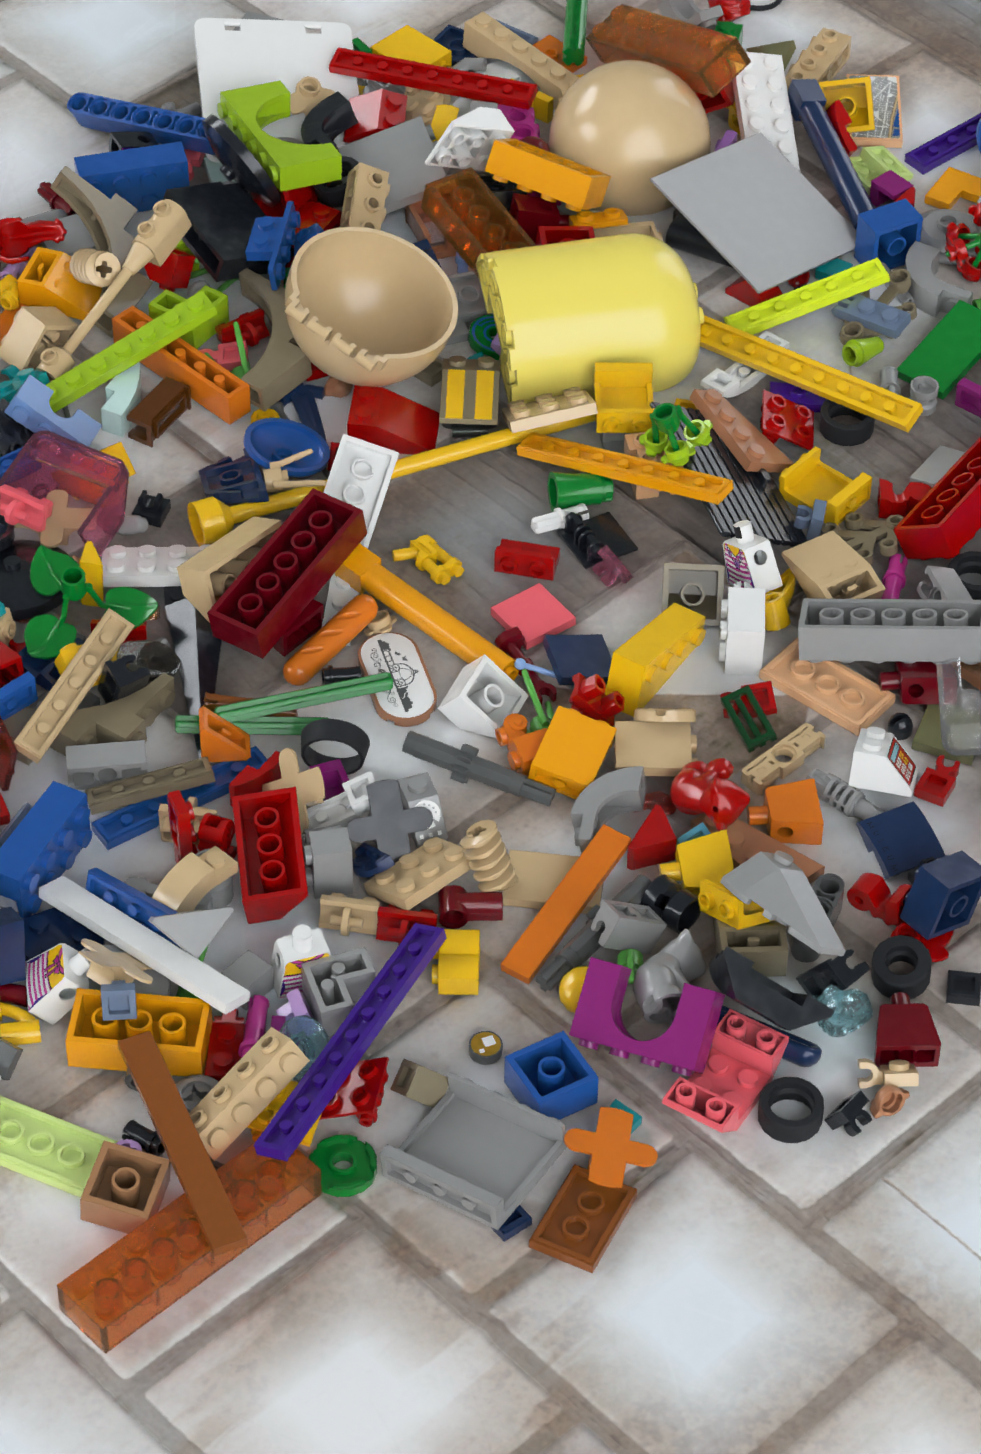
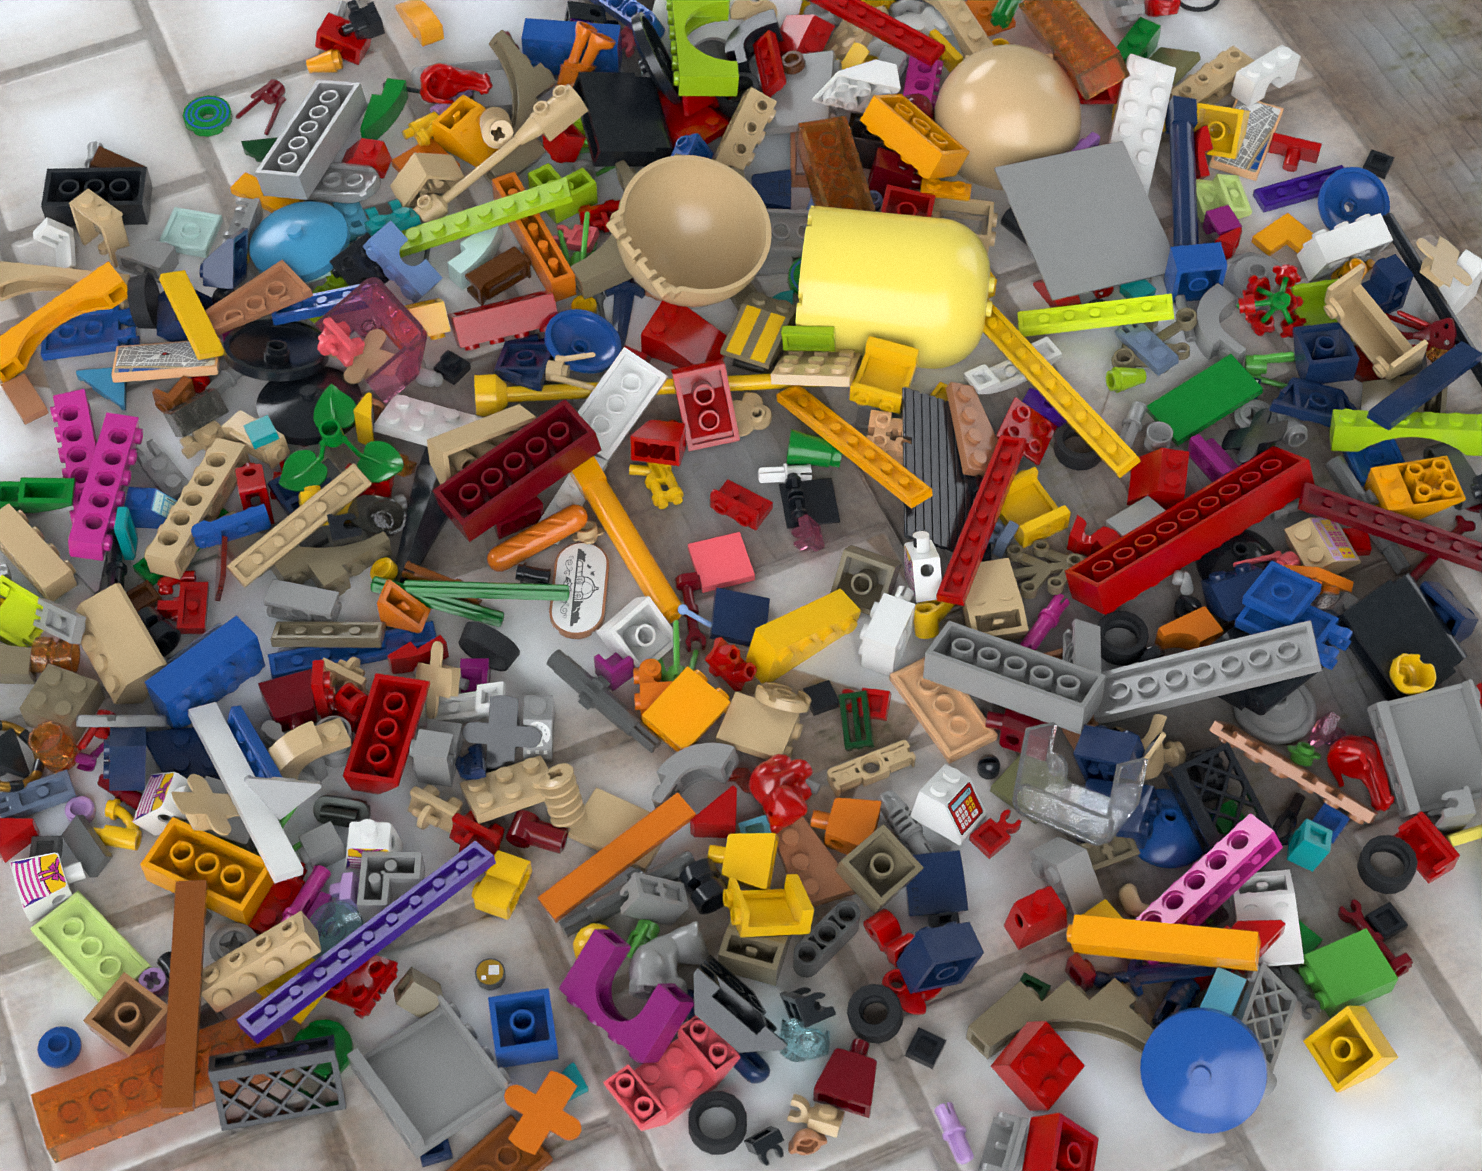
camera: 20 degrees right, 10 degrees up
(55, 1244) = (59, 1047): none -> blue piece
(118, 1001) = (192, 843): sand blue tile -> none
(139, 854) = (290, 699): none -> dark red torso
(144, 195) = (597, 42): none -> orange piece
(176, 707) = (384, 568): none -> yellow tile
(188, 449) = (502, 319): none -> slope
(236, 943) = (340, 810): none -> pearl dark grey piece
(272, 242) = (653, 140): blue bracket -> none
(311, 1171) = (267, 1061): none -> black fence
(357, 141) = (769, 64): none -> red plate
(381, 138) = (793, 62): none -> reddish brown tile
(418, 519) = (659, 442): none -> red torso
(448, 472) = (705, 404): none -> red slope
(477, 737) = (614, 669): none -> magenta panel
(491, 476) = (747, 411): none -> tan plate
(528, 384) = (808, 338): none -> lime tile
(665, 423) = (893, 420): plant -> none
(705, 708) = (822, 697): none -> black tile
(786, 897) = (784, 919): light grey wedge -> none
(789, 504) = (981, 520): none -> red tile
(843, 836) = (878, 868): none -> dark tan slope
(870, 42) = (1274, 67): none -> white arch
(928, 109) = (1294, 150): none -> red tile
(944, 423) = (1159, 476): none -> red slope

